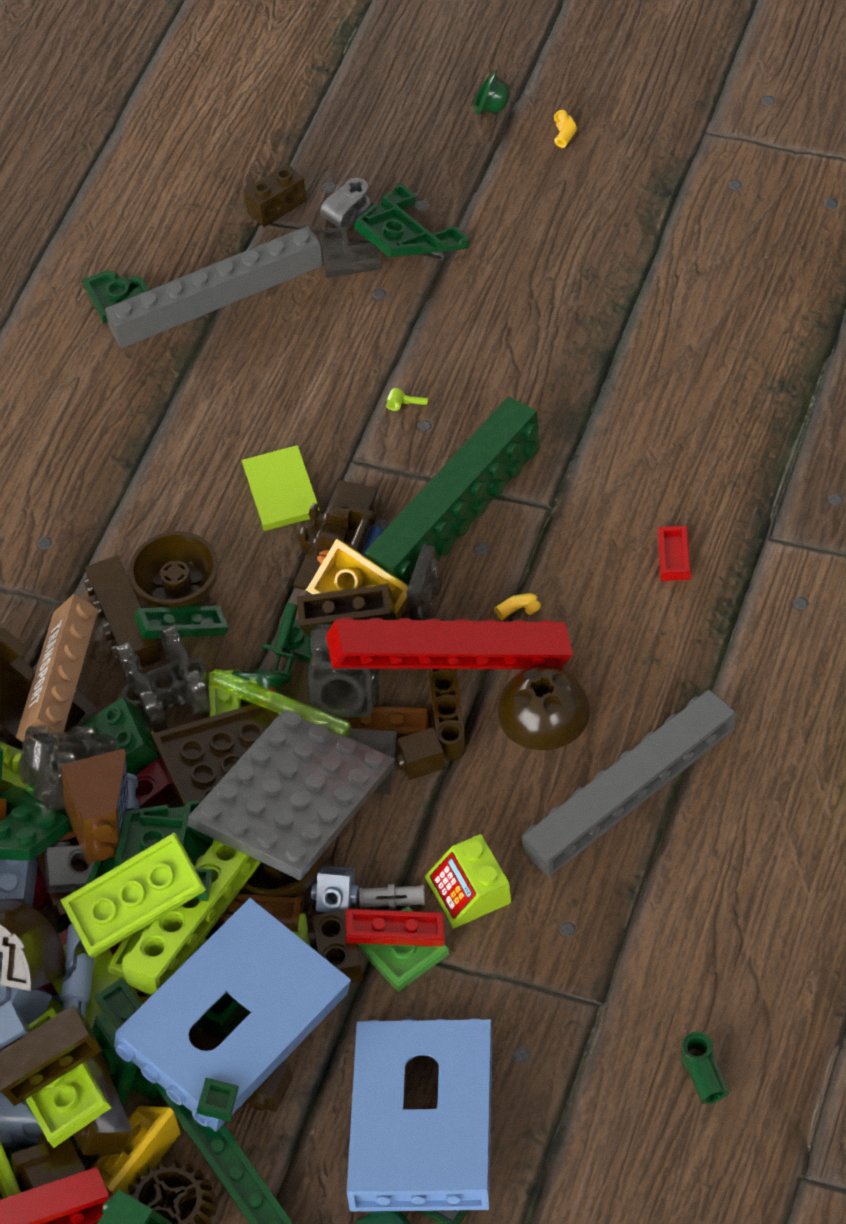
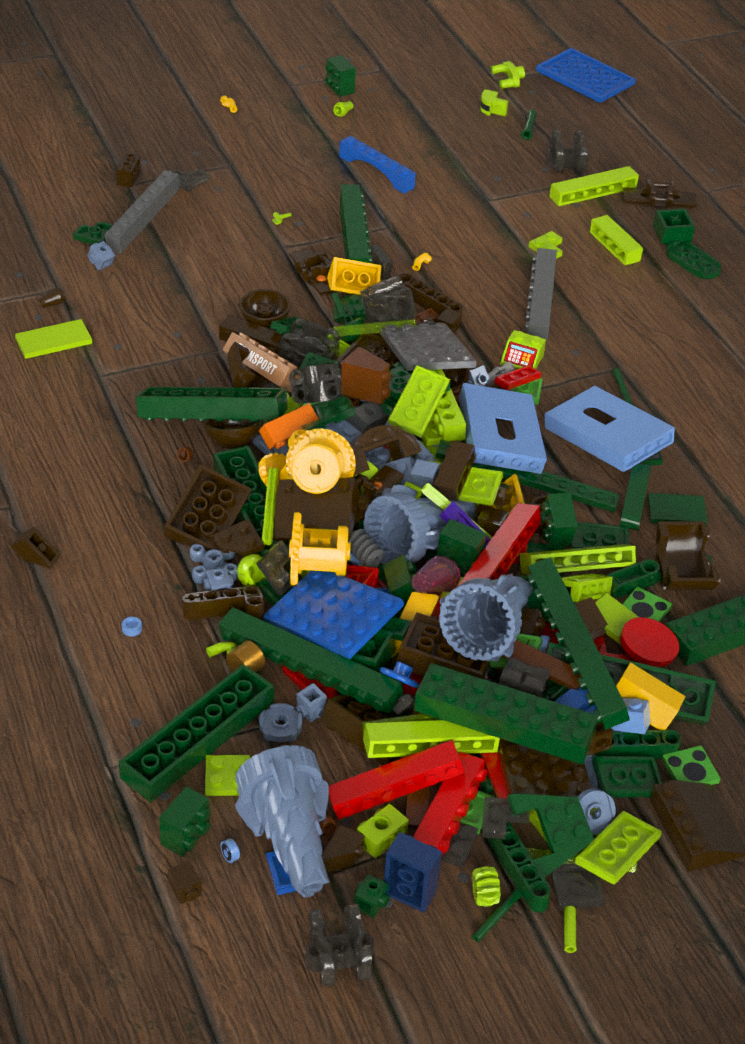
camera: 50 degrees left, 10 degrees down
(73, 342) = (101, 255): none -> sand blue brick
(217, 1099) = (540, 451): dark green tile -> none
(280, 487) = (265, 268): lime tile -> none
(346, 203) = (166, 160): flat silver piece -> none
(353, 603) = (371, 275): dark brown brick -> none
(399, 233) = (206, 161): dark green wing -> none
(447, 644) = (426, 270): red brick -> none
(492, 95) = (183, 101): dark green hat -> none
(540, 1071) = (622, 386): none -> dark green piece
(543, 708) = (475, 287): dark brown piece -> none
(652, 373) = (399, 175): none -> blue arch
(674, 553) = (459, 219): red tile -> none
(703, 1069) = (681, 362): dark green piece -> none
(729, 223) = (342, 108): none -> lime cone
(752, 681) = (547, 241): none -> lime plate
(779, 155) = (340, 75): none -> dark green brick

